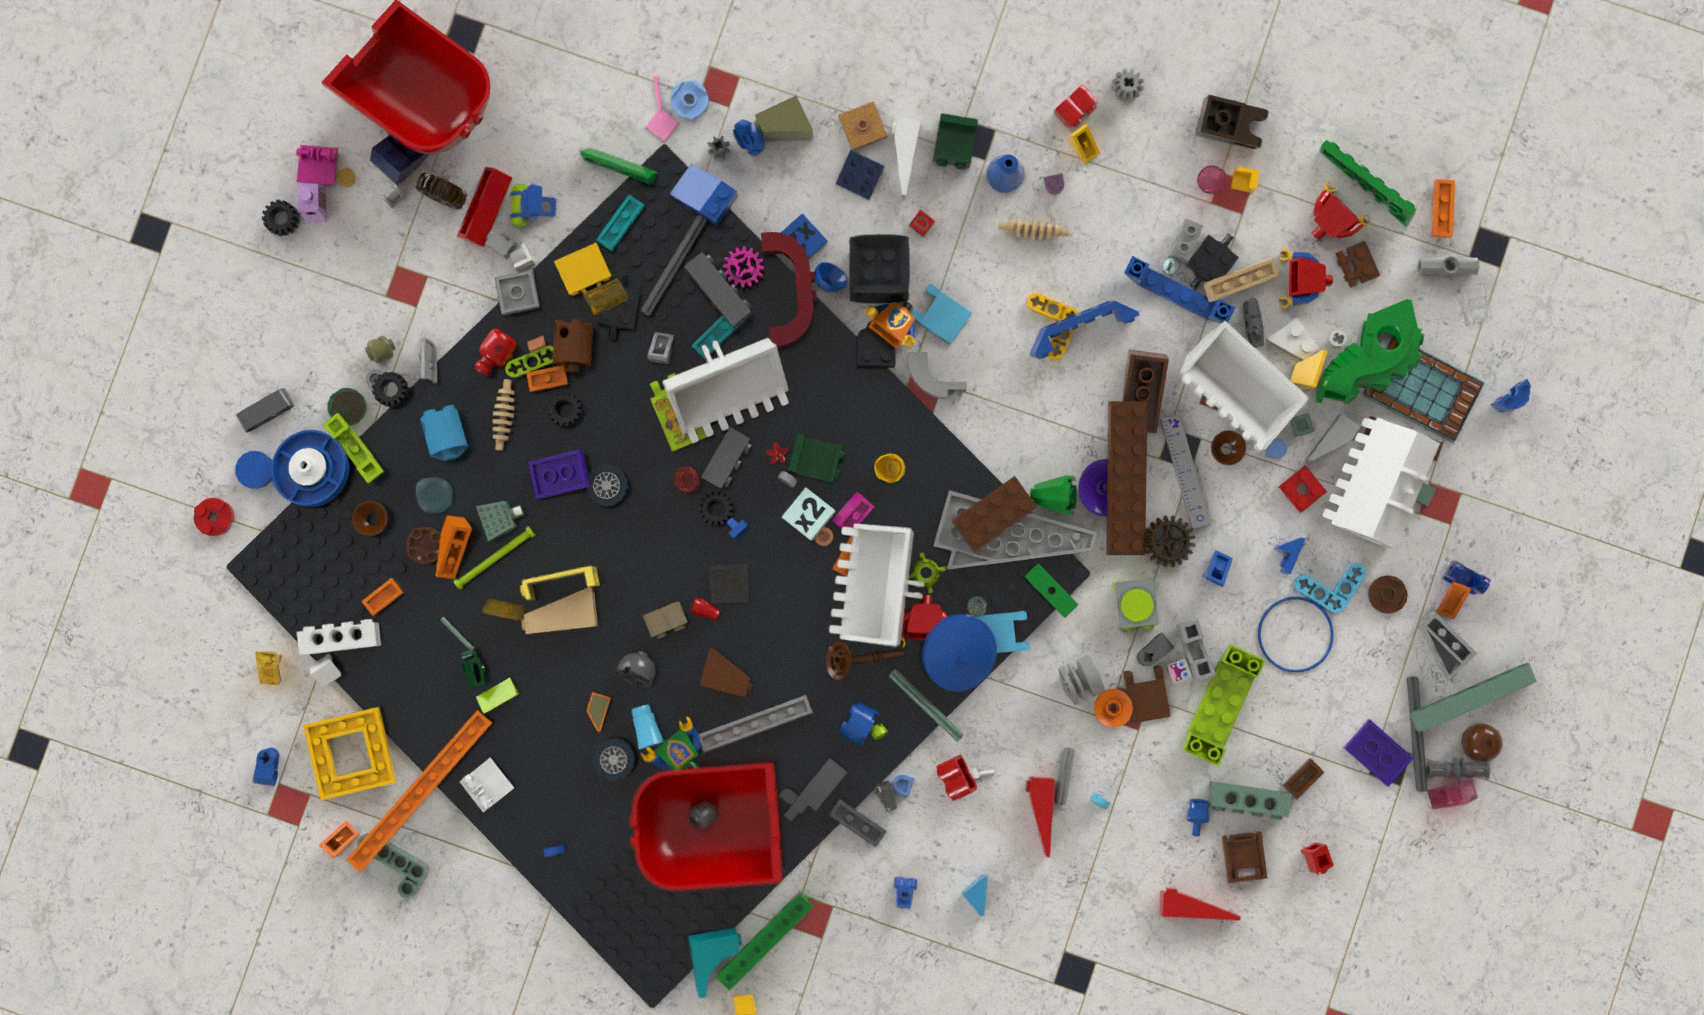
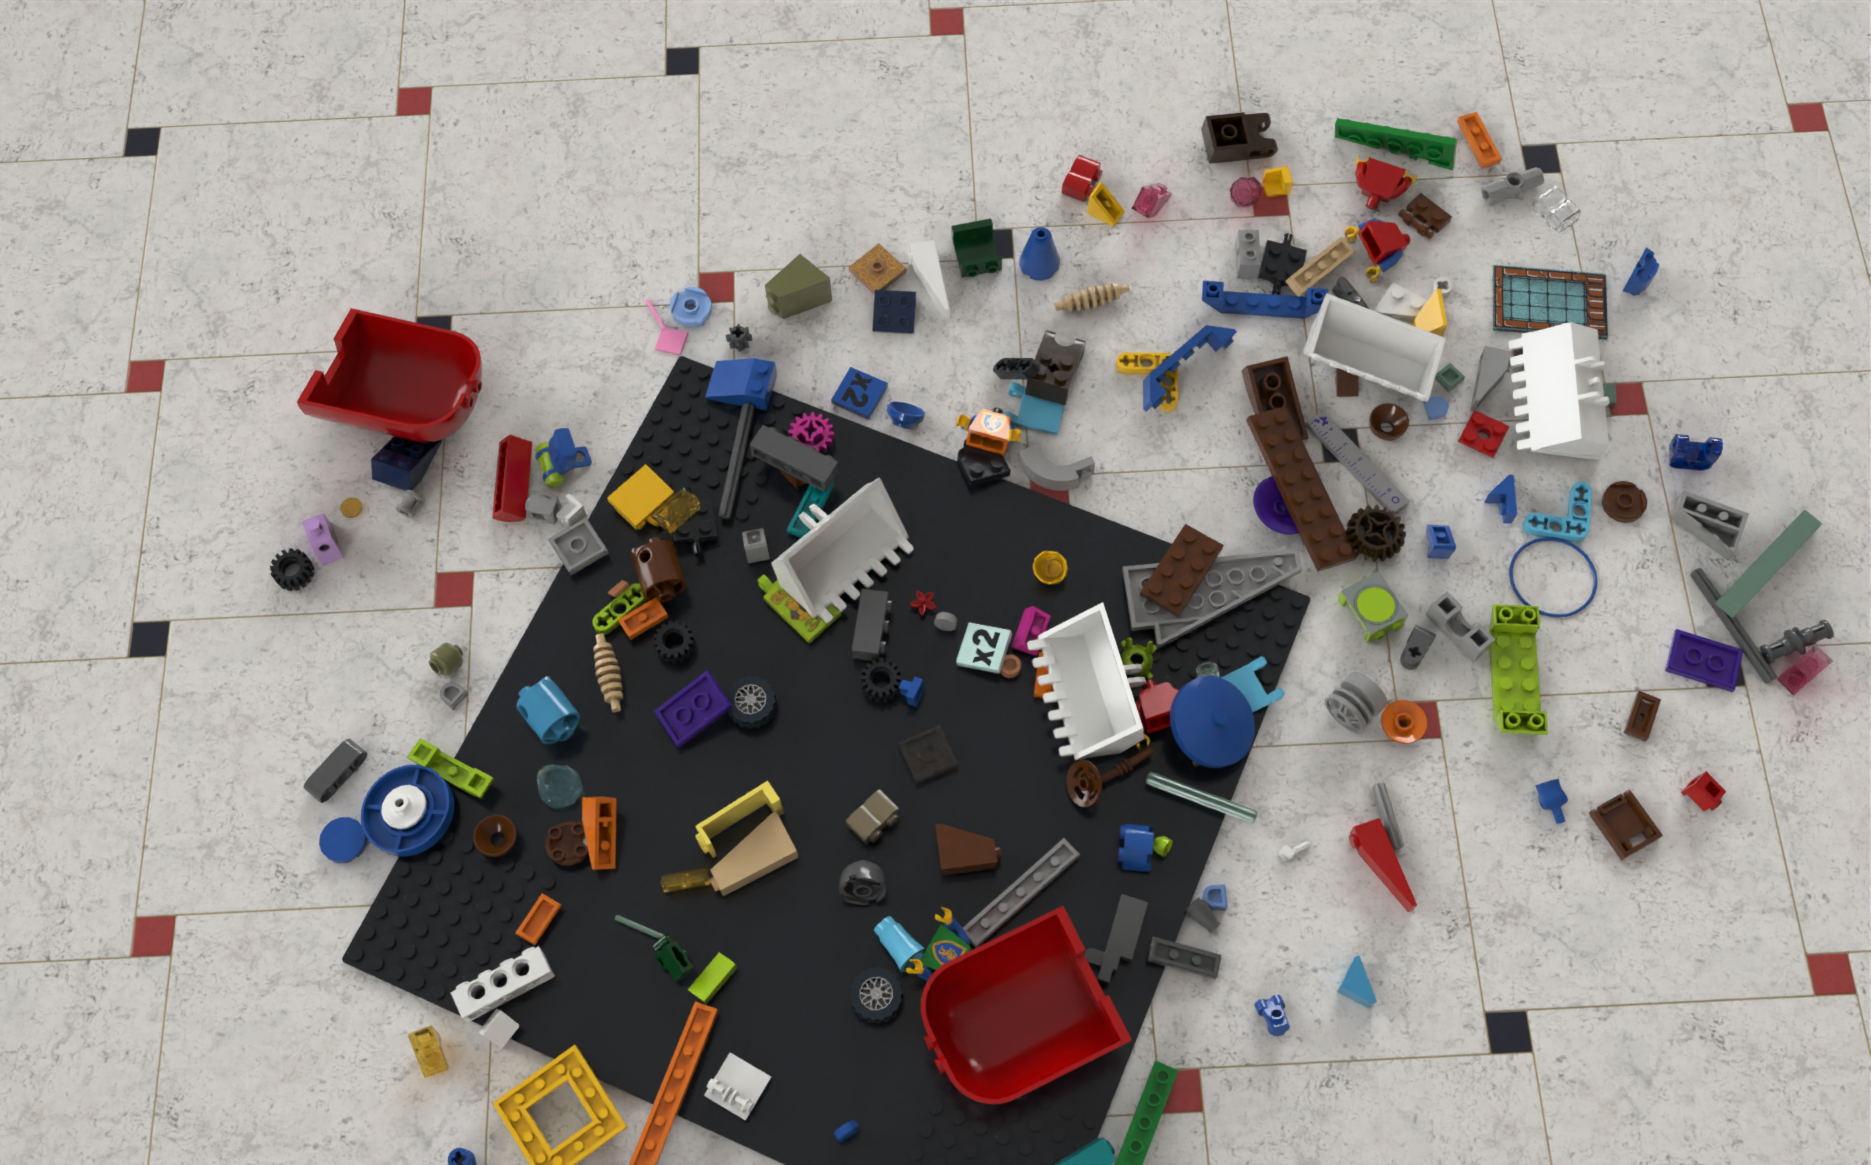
camera: 20 degrees left, 20 degrees down
(223, 521) = (297, 905): red plate -> none
(317, 164) = (315, 501): dark pink hinge -> none
(348, 404) = (430, 728): tile -> none
(401, 394) = (469, 681): black tyre -> none
(428, 356) = (502, 648): light grey piece -> none
(441, 190) = (460, 476): dark brown gear -> none
(493, 558) = (652, 827): lime bar -> none
(495, 350) = (575, 609): red piece -> none
(498, 519) = (641, 782): sand green torso -> none
(598, 709) = (835, 947): olive tile -> none
(619, 165) = (638, 391): green slope -> none
(620, 223) = (664, 441): teal tile -> none
(687, 480) = (837, 661): clear red wheel -> none
(703, 815) = (1005, 1013): dark grey head -> none
(704, 609) = (909, 789): red cone -> none
(749, 137) = (766, 314): blue tile -> none
(787, 246) = (856, 400): dark red arch -> none
(816, 459) = (968, 591): dark green panel -> none
(879, 268) = (953, 379): black piece -> none
(922, 223) = (976, 333): red tile -> none
(943, 278) = (1016, 368): none -> black beam
(956, 777) = (1271, 862): red brick -> none
(976, 282) = (1057, 369): none -> dark brown brick
(1054, 184) = (1092, 253): clear purple tile -> none
(1056, 494) = (1237, 530): green cone -> none
(1059, 599) = (1290, 631): green tile -> none
(1100, 800) = (1440, 824): medium azure tile -> none
(1127, 154) = (1151, 199): none -> clear pink slope
(1129, 91) = (1122, 142): light grey gear -> none
(1148, 697) = (1434, 697): reddish brown flag -> none
(1174, 268) = (1249, 281): light aqua hinge -> none
(1179, 670) = (1452, 658): tile -> none
(1185, 906) = (1595, 900): red slope -> none
(1280, 800) = (1630, 746): sand green brick -> none
(1370, 364) = (1486, 291): green animal -> none
(1453, 600) = (1694, 475): orange tile -> none
(1482, 742) = (1803, 606): reddish brown cylinder -> none

